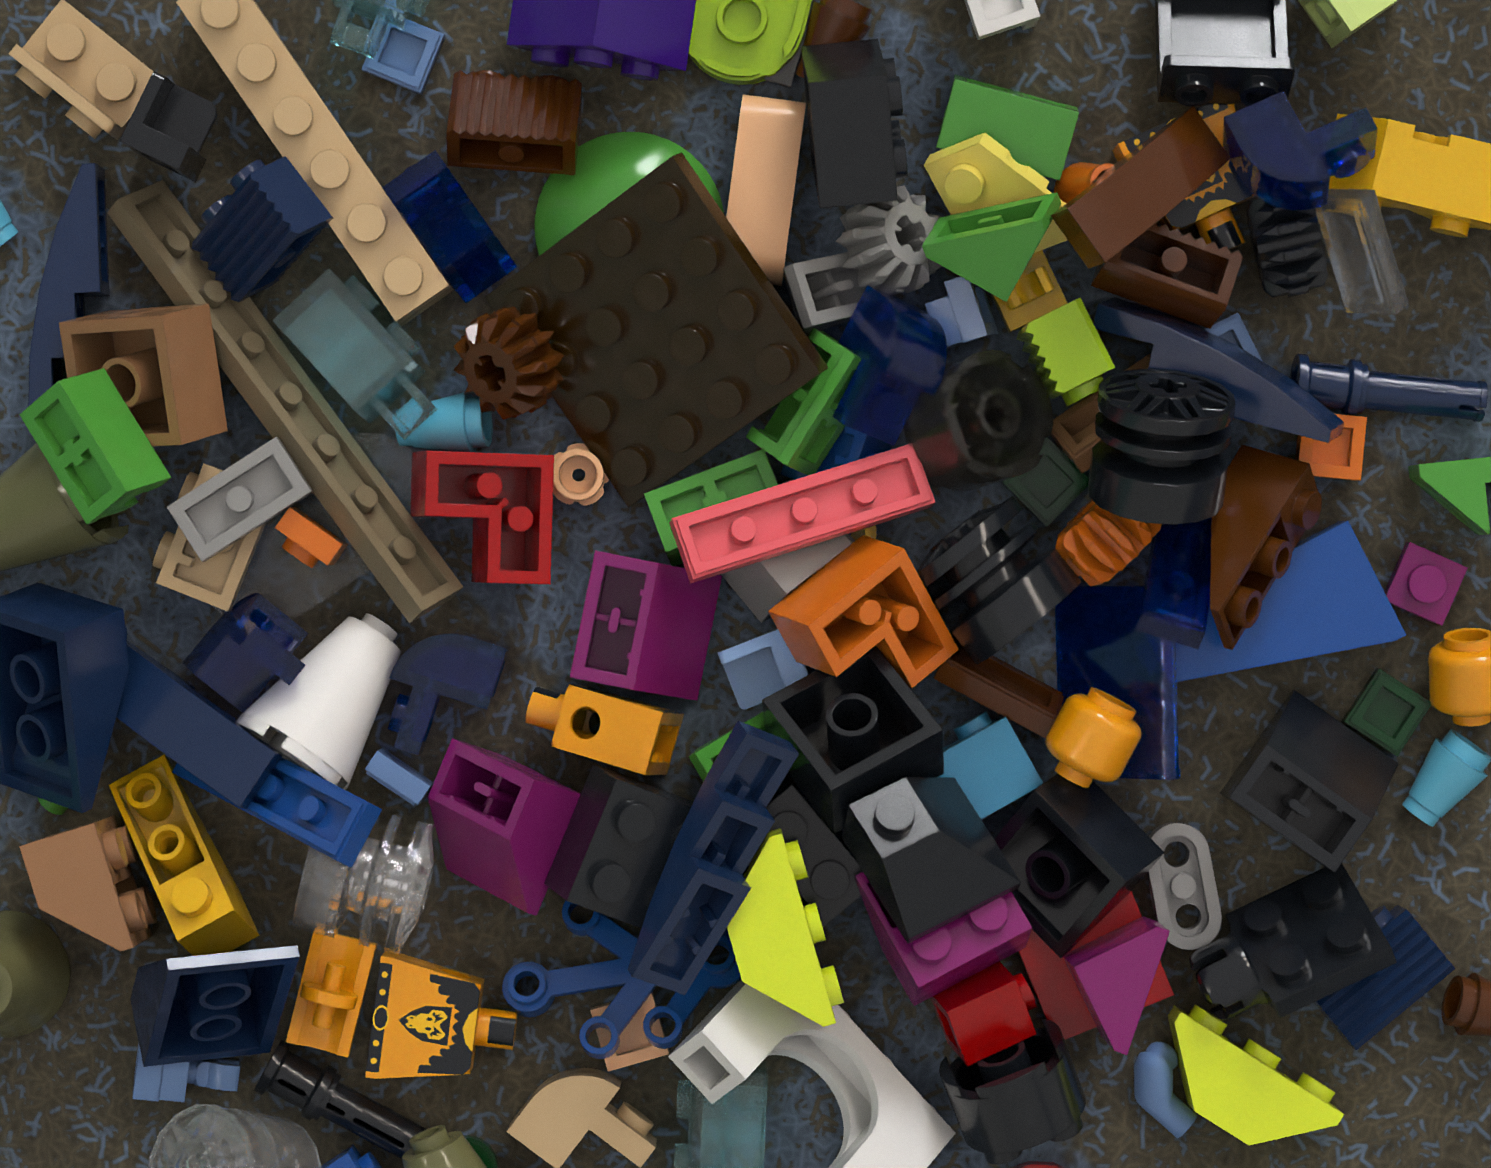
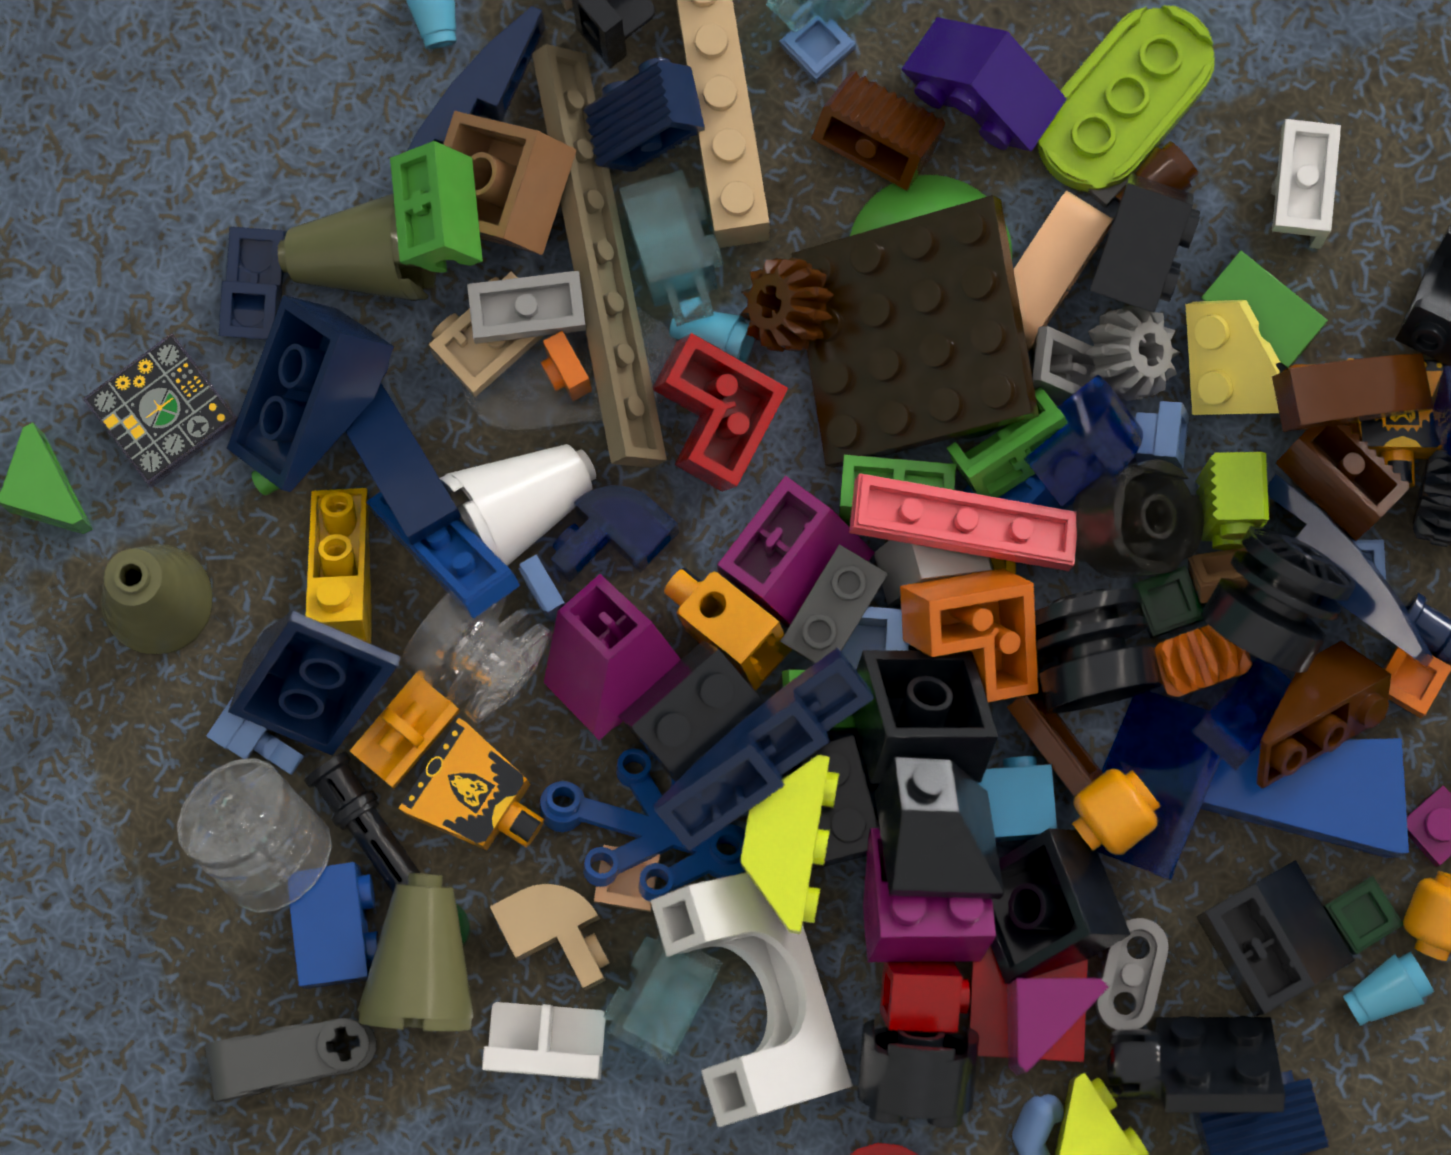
camera: 30 degrees right, 10 degrees down
(89, 882) = (260, 542): medium nougat slope -> none
(247, 651) = (473, 431): clear blue brick -> none
(449, 226) = (791, 182): clear blue brick -> none
(569, 490) = (793, 409): light nougat plate -> none
(710, 661) = (834, 605): none -> dark grey hinge
(992, 242) = (1213, 386): bright green slope -> none
(1033, 295) = (1216, 434): yellow tile -> none

